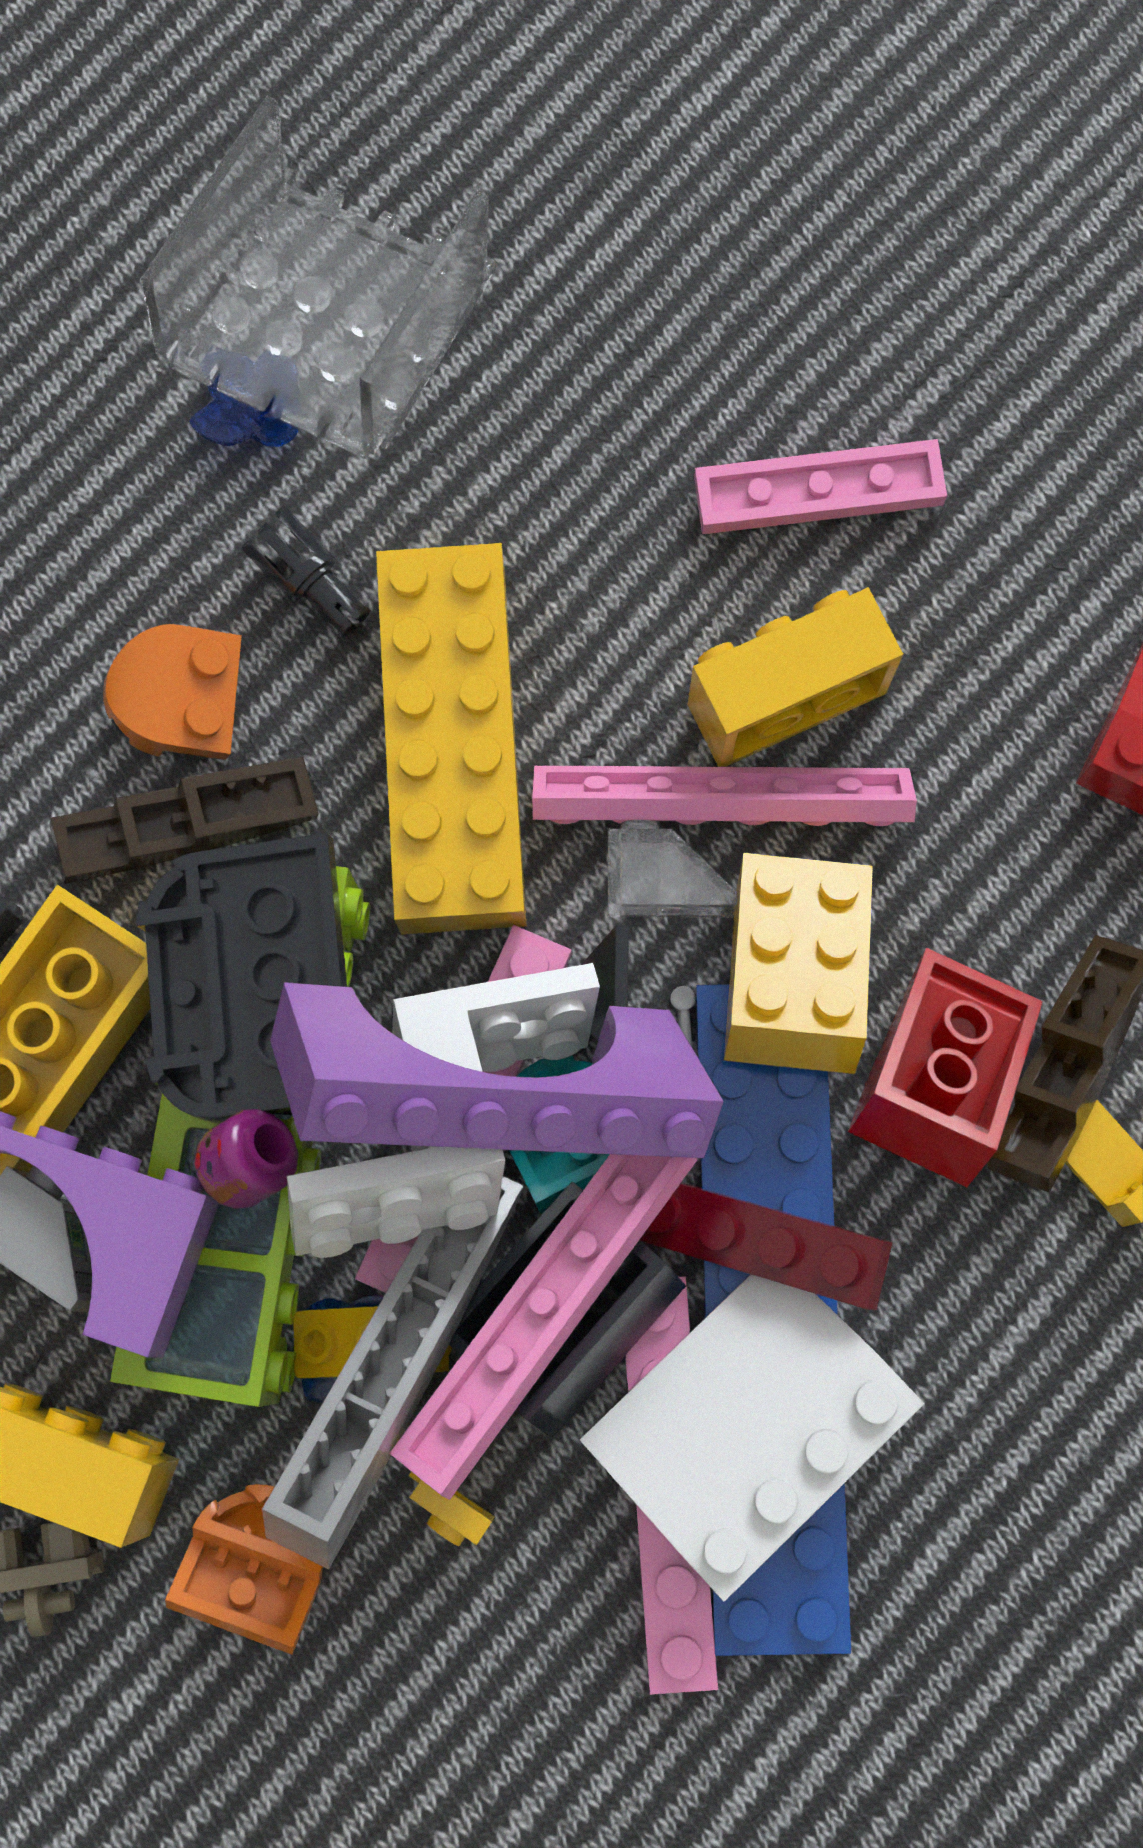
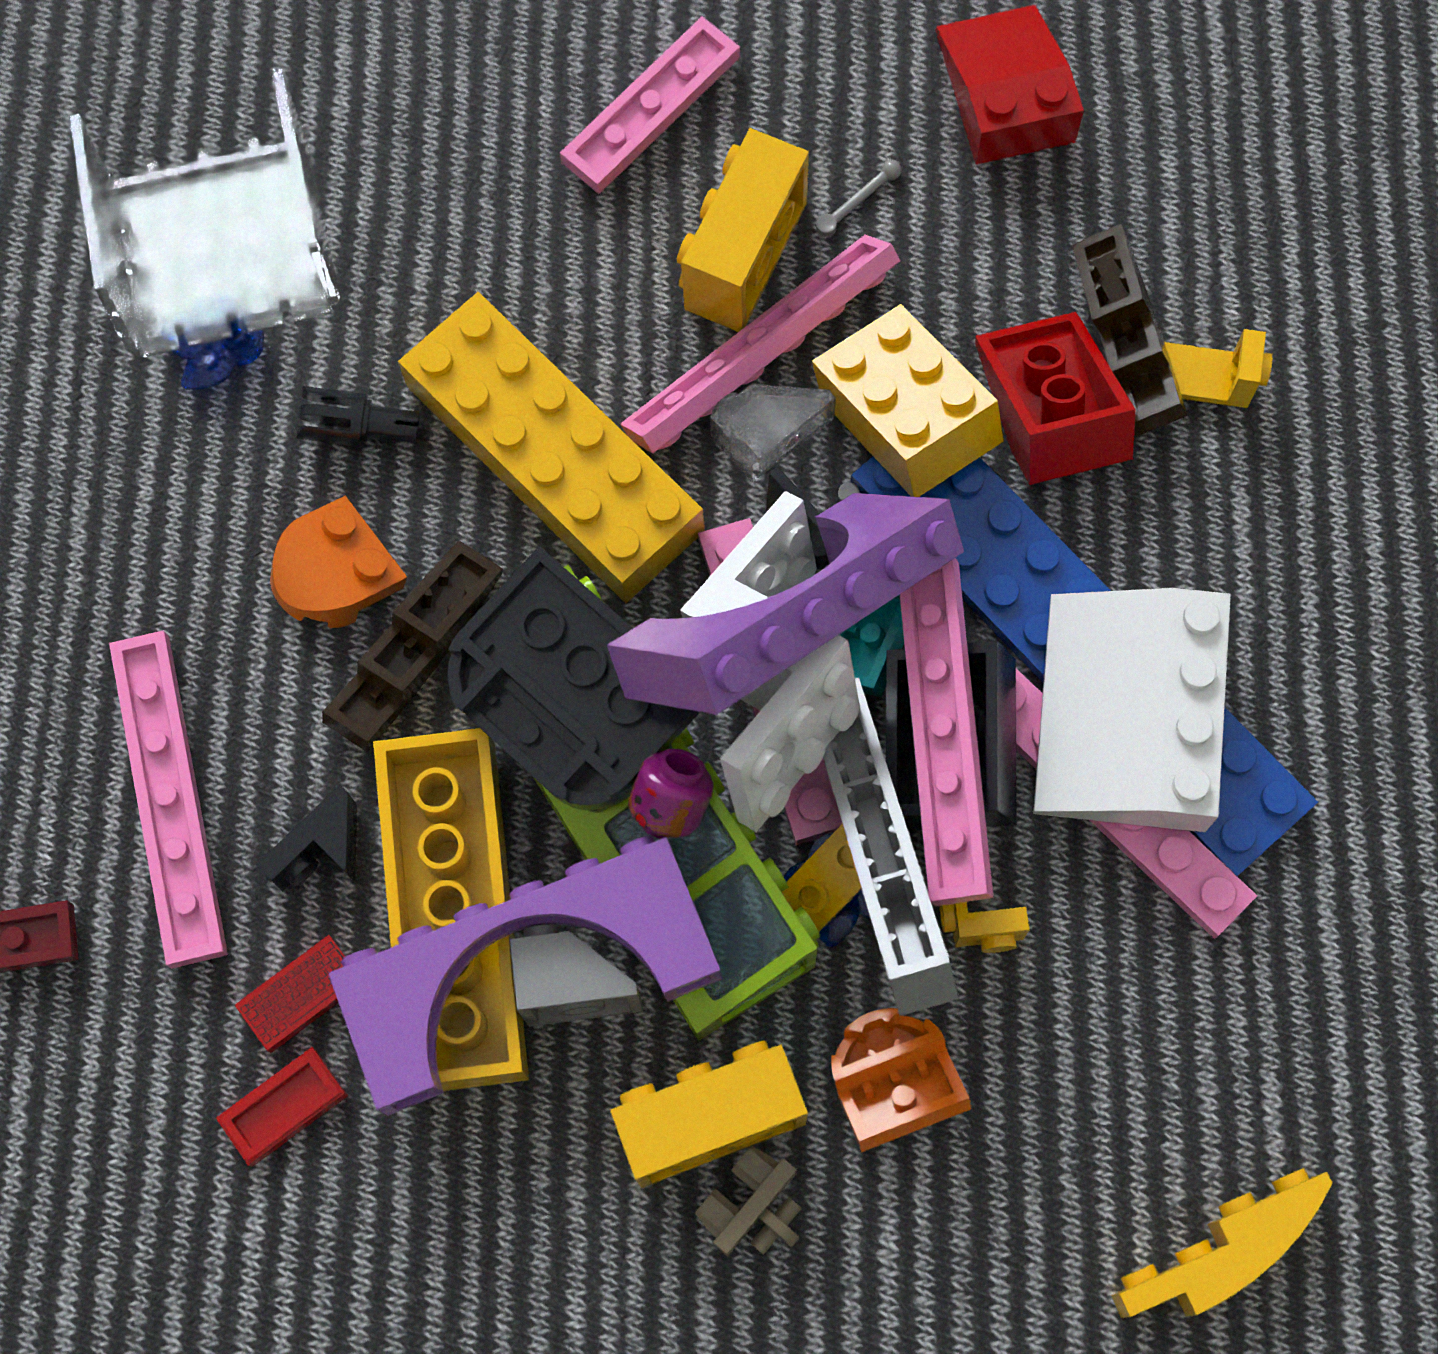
camera: 40 degrees left, 5 degrees down
(772, 1245) = (1053, 580): dark red plate -> none
(885, 728) = (827, 223): none -> light grey hinge

